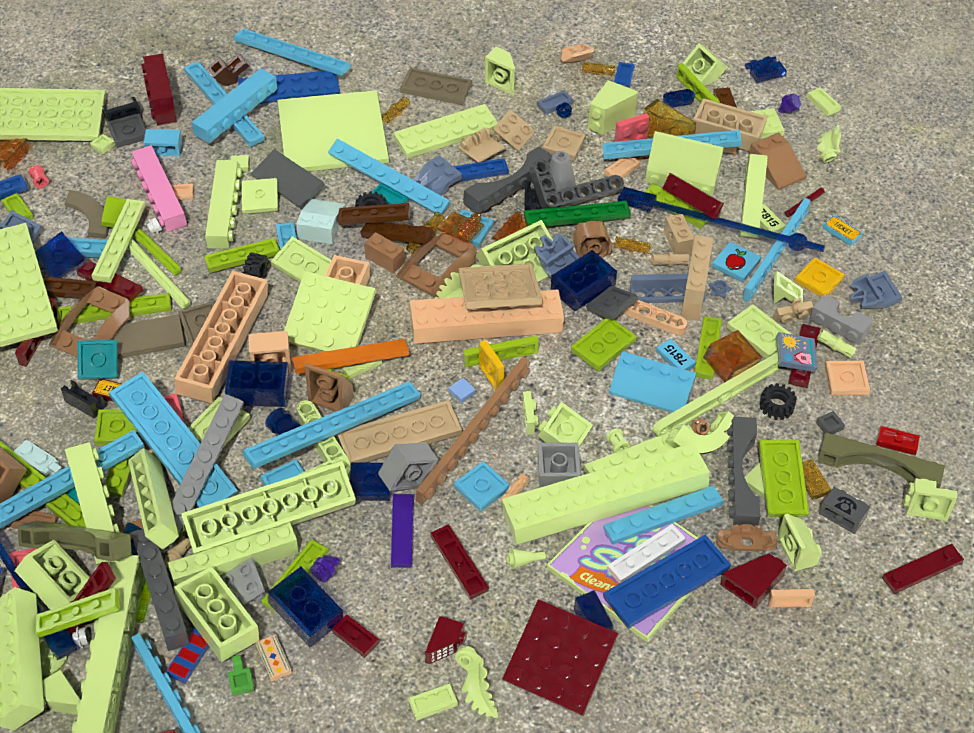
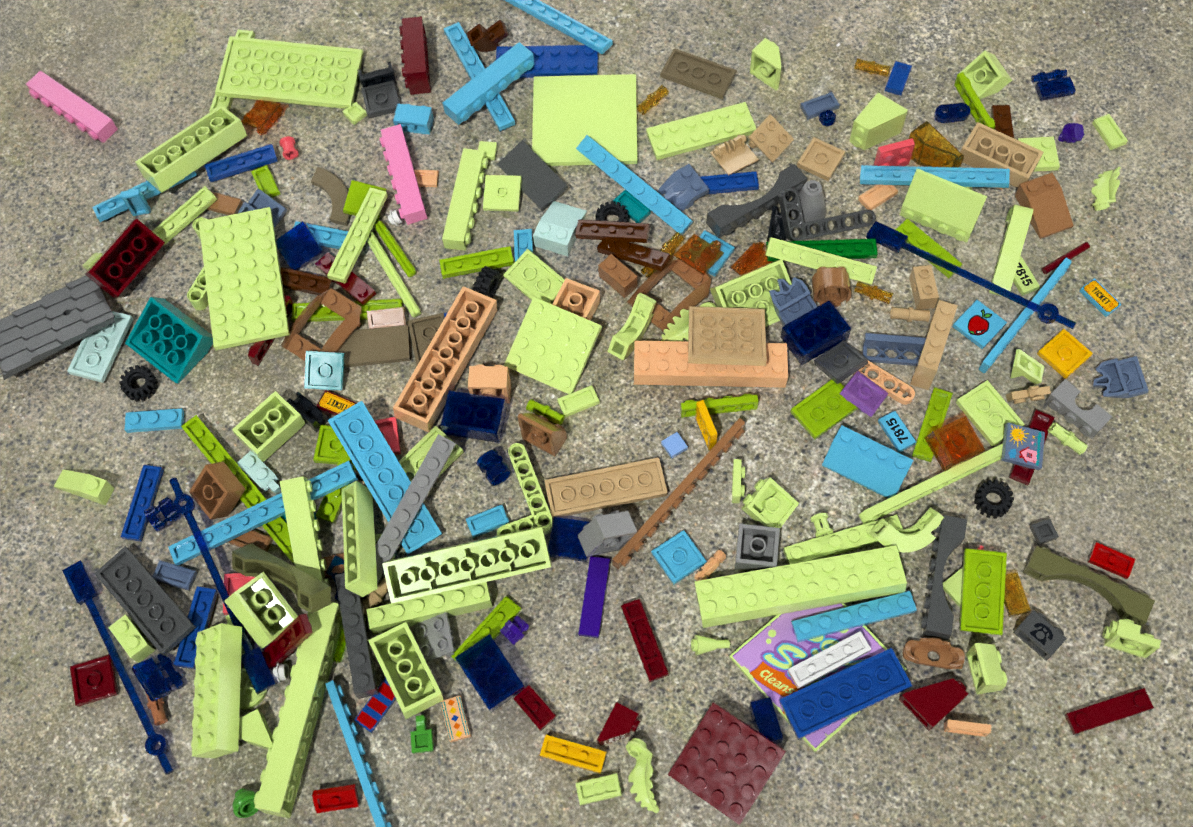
camera: 15 degrees right, 15 degrees up
(44, 414) = (269, 426): none -> yellowish green brick
(77, 612) = (276, 658): lime plate -> none
(156, 309) = (386, 317): none -> tile
(330, 425) = (539, 476): medium azure plate -> none
(352, 355) = (568, 395): orange tile -> none
(401, 673) = (573, 754): none -> yellow plate
(410, 289) = (635, 327): none -> yellowish green arch
(569, 219) = (815, 259): none -> yellowish green plate
(576, 53) = (851, 45): light nougat slope -> none
(638, 325) = (864, 393): none -> medium lavender plate
(693, 195) = (946, 244): dark red plate -> none
(701, 431) = (907, 522): nougat pin -> none
(724, 288) = (957, 349): sand blue plate -> none
(847, 378) = (1072, 478): light nougat tile -> none

